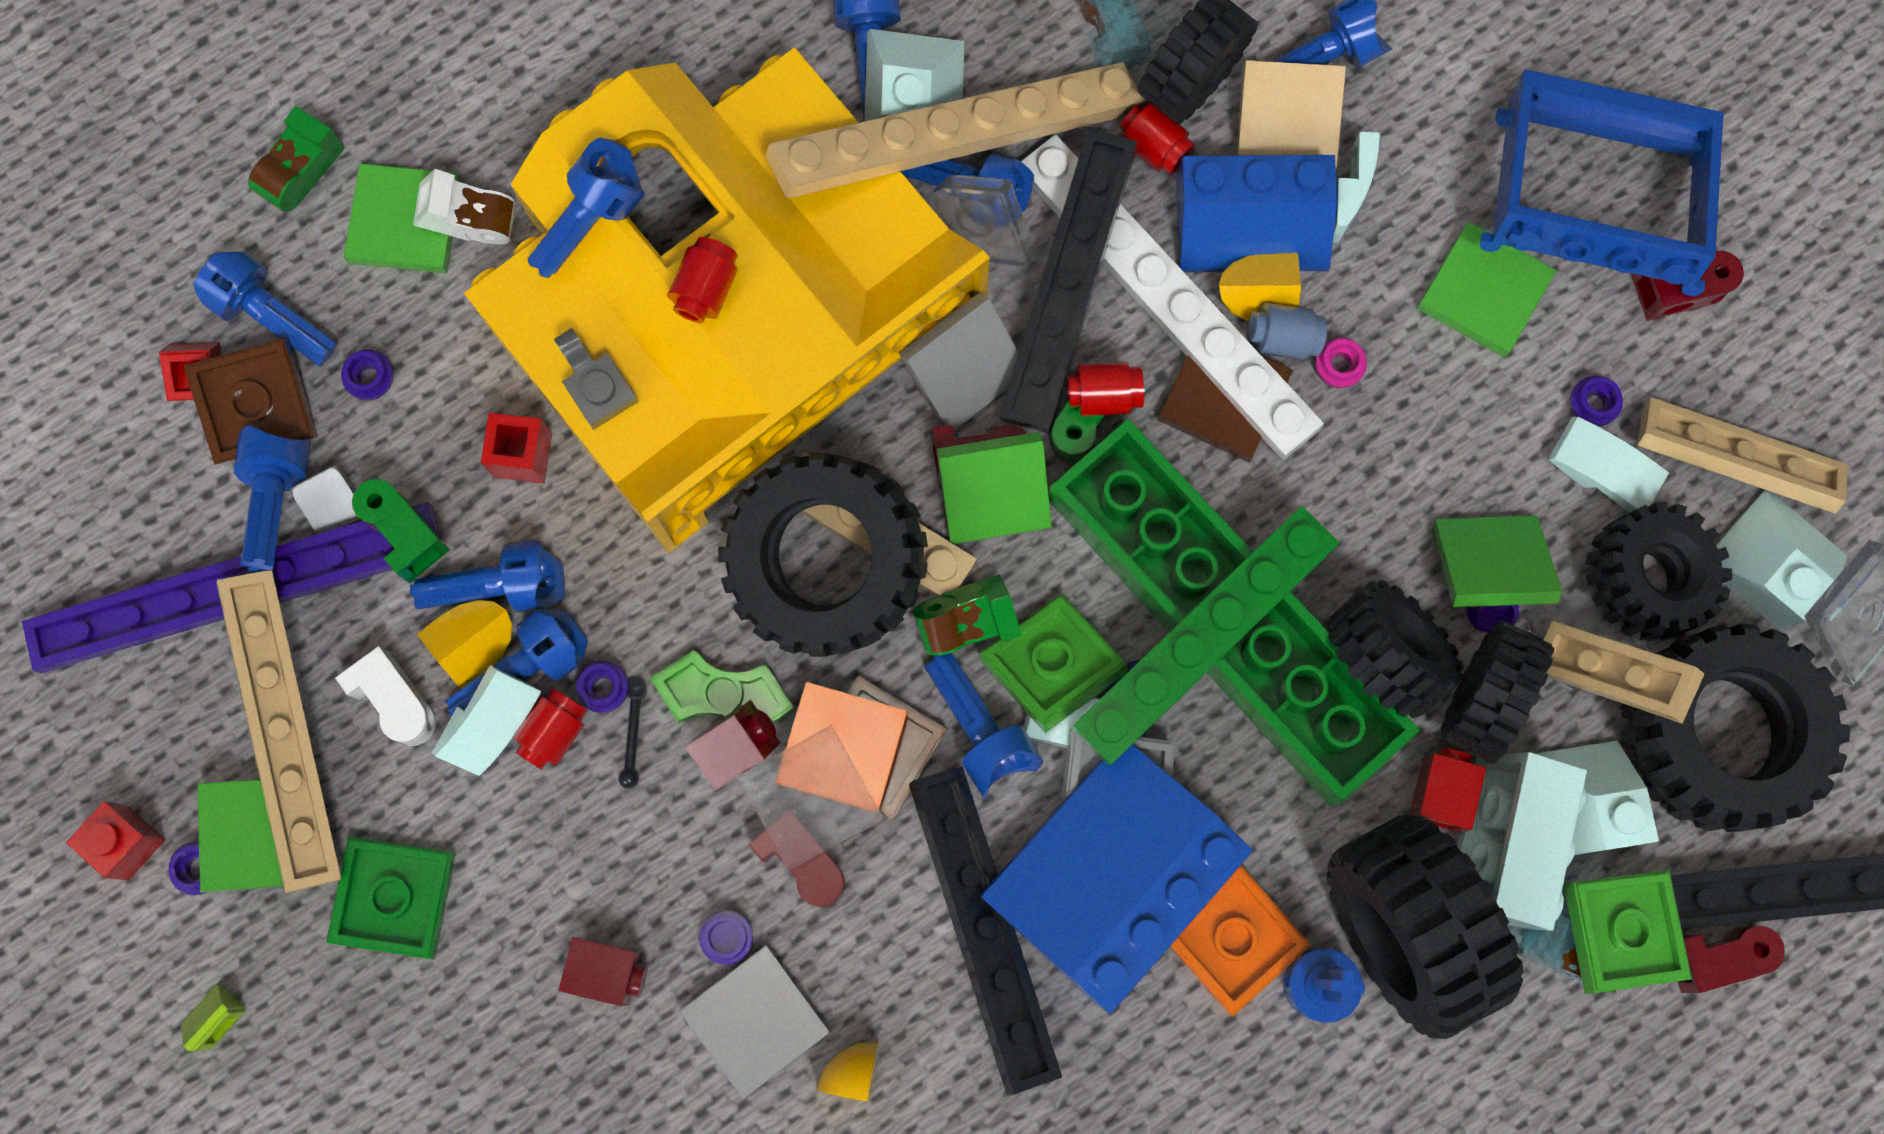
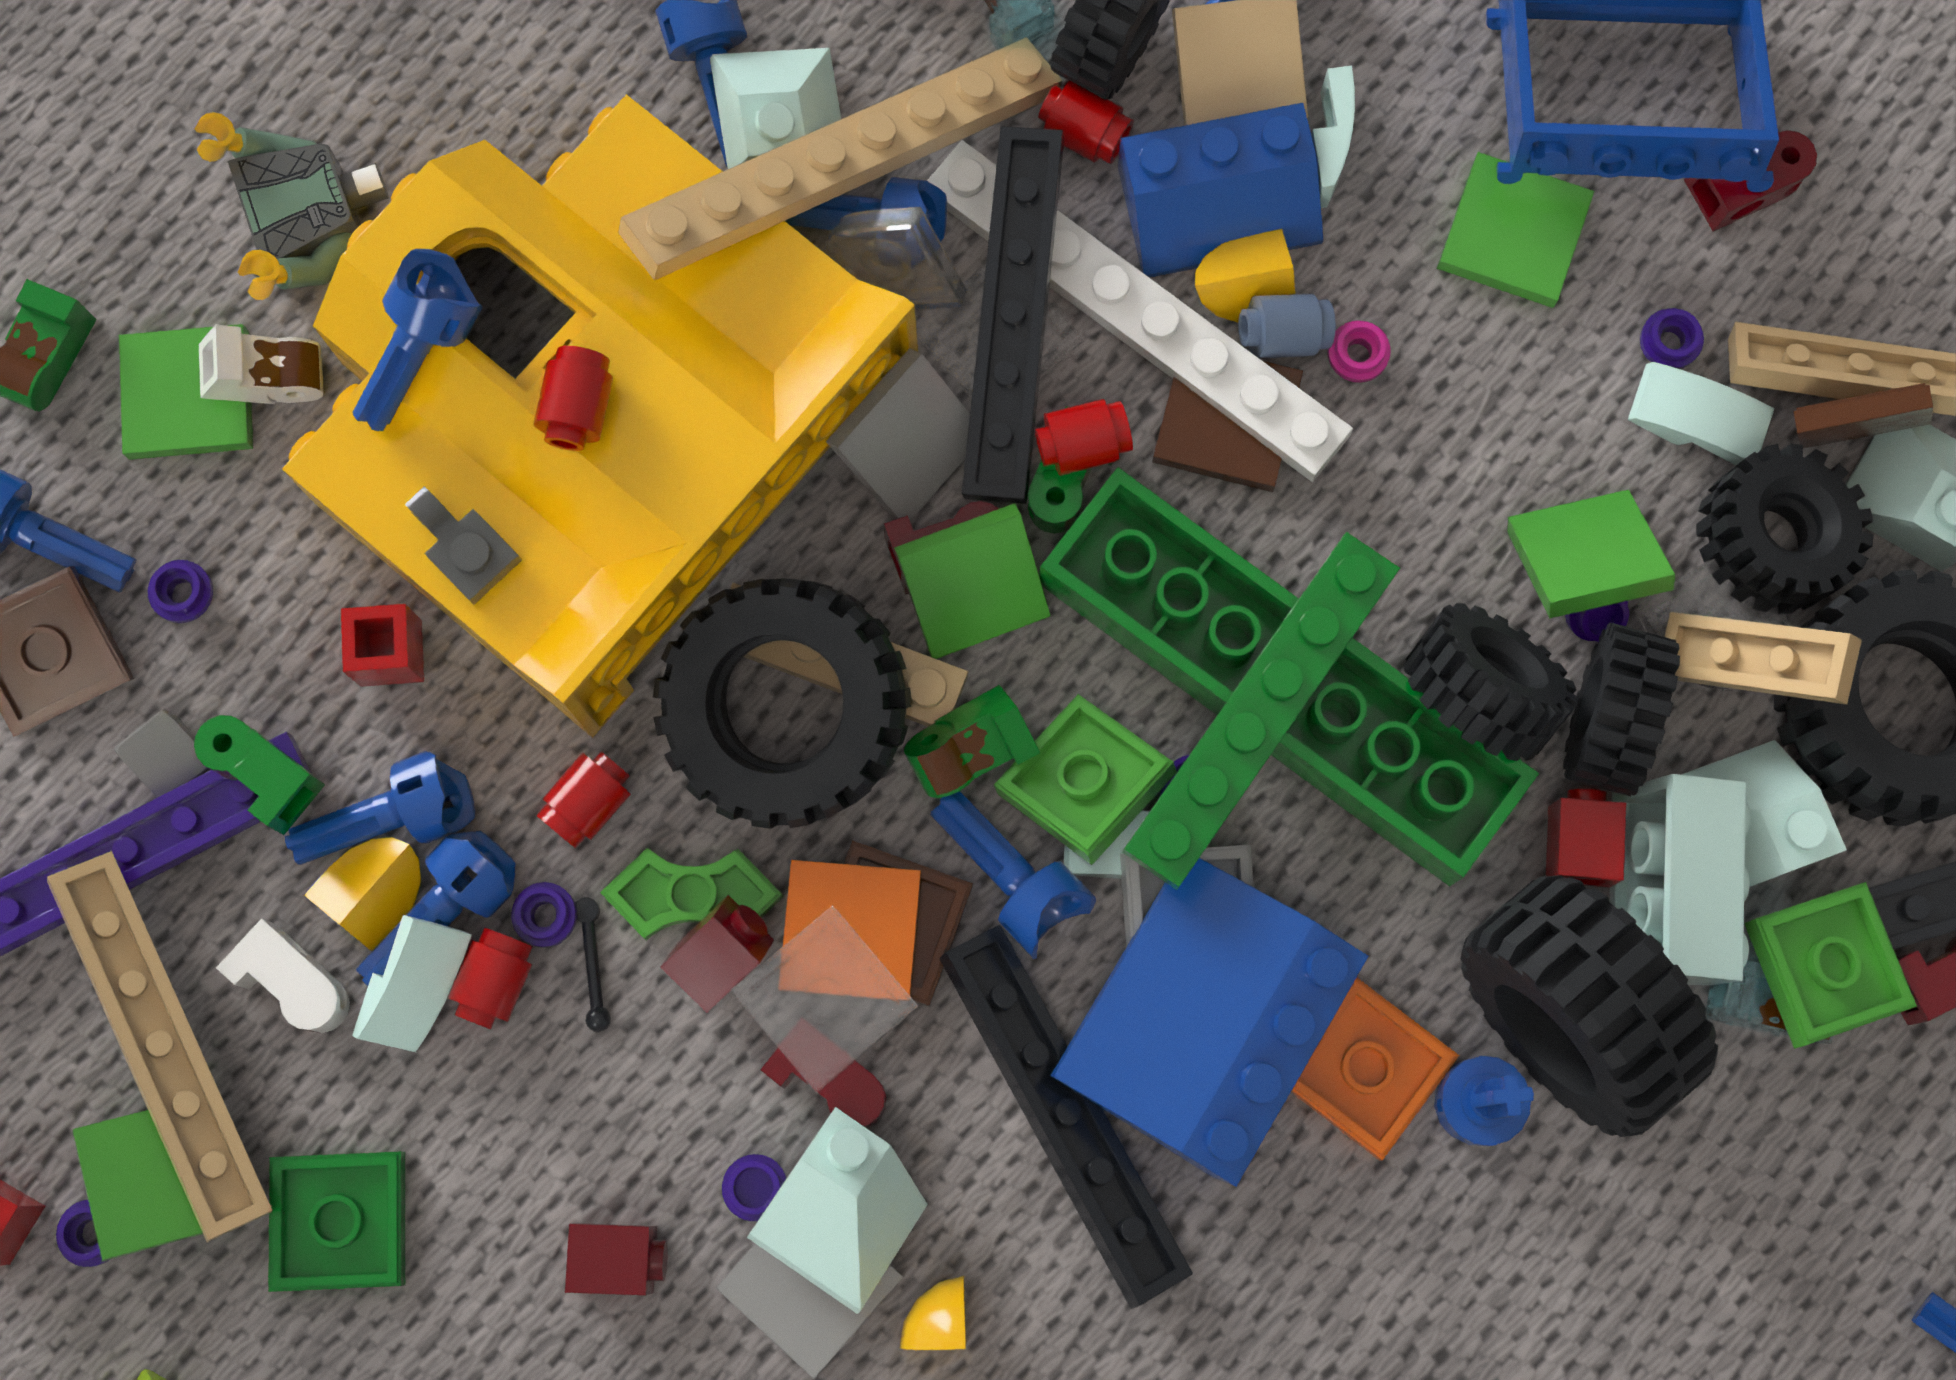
camera: 10 degrees left, 0 degrees up
(270, 468) = (85, 727): blue piece -> none
(516, 83) = (293, 202): none -> torso
(652, 601) = (585, 798): none -> red brick
(791, 971) = (842, 1211): none -> light aqua slope
(1742, 492) = (1864, 415): none -> reddish brown tile

